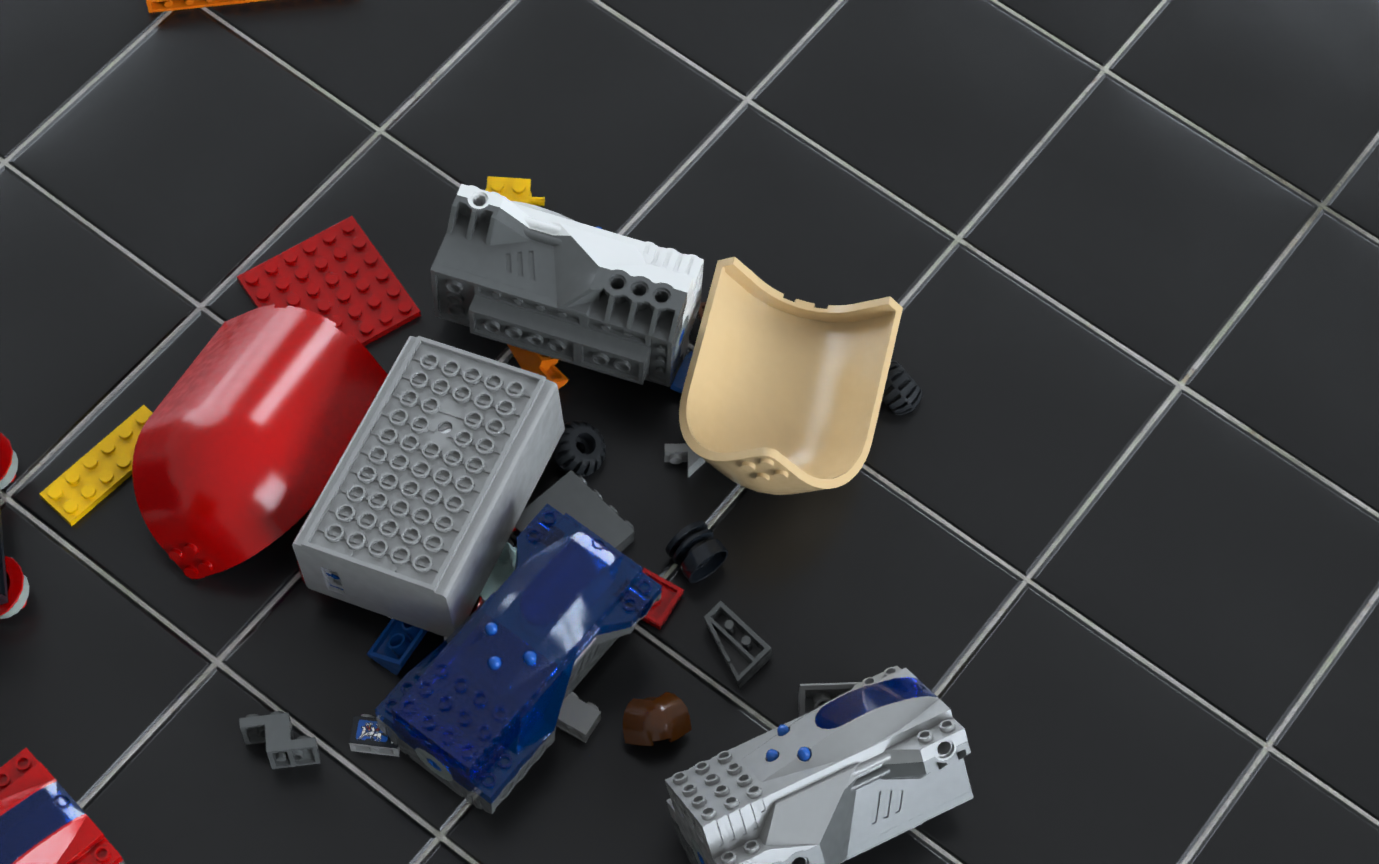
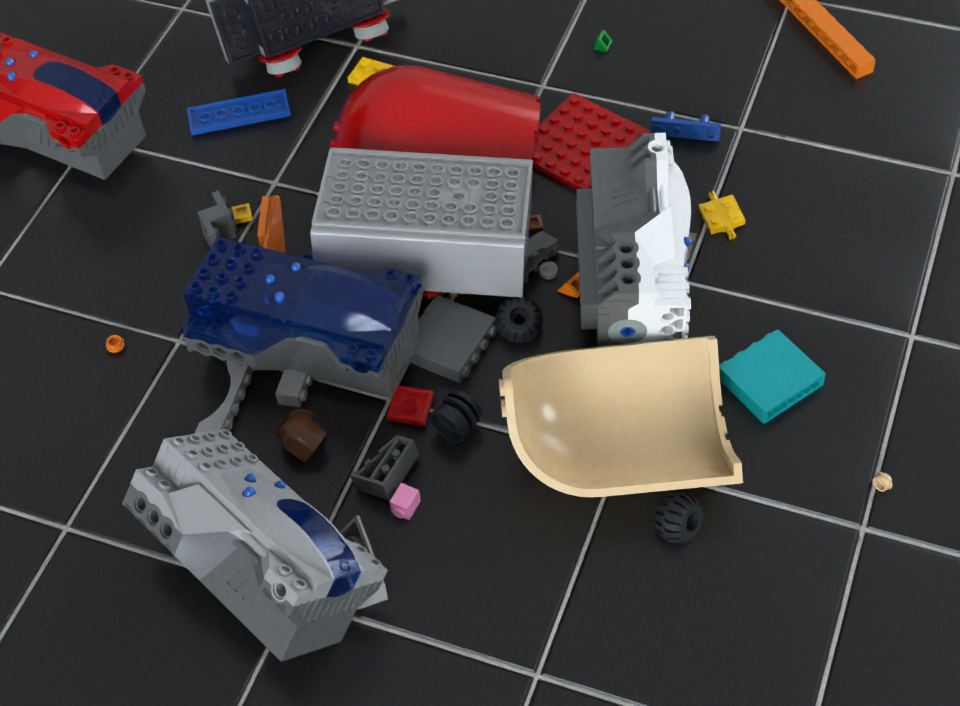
camera: 80 degrees right, 10 degrees down
(65, 674) = (238, 112): none -> blue plate
(161, 215) = (603, 42): none -> green slope
(261, 706) = (242, 213): none -> yellow plate
(300, 683) = (271, 224): none -> orange wedge
(356, 191) = (686, 128): none -> blue plate
(609, 822) = (223, 416): none -> light grey arch
(756, 234) = (771, 376): none -> teal brick
(783, 639) = (405, 501): none -> bright pink brick
(916, 198) = (882, 481): none -> tan plate

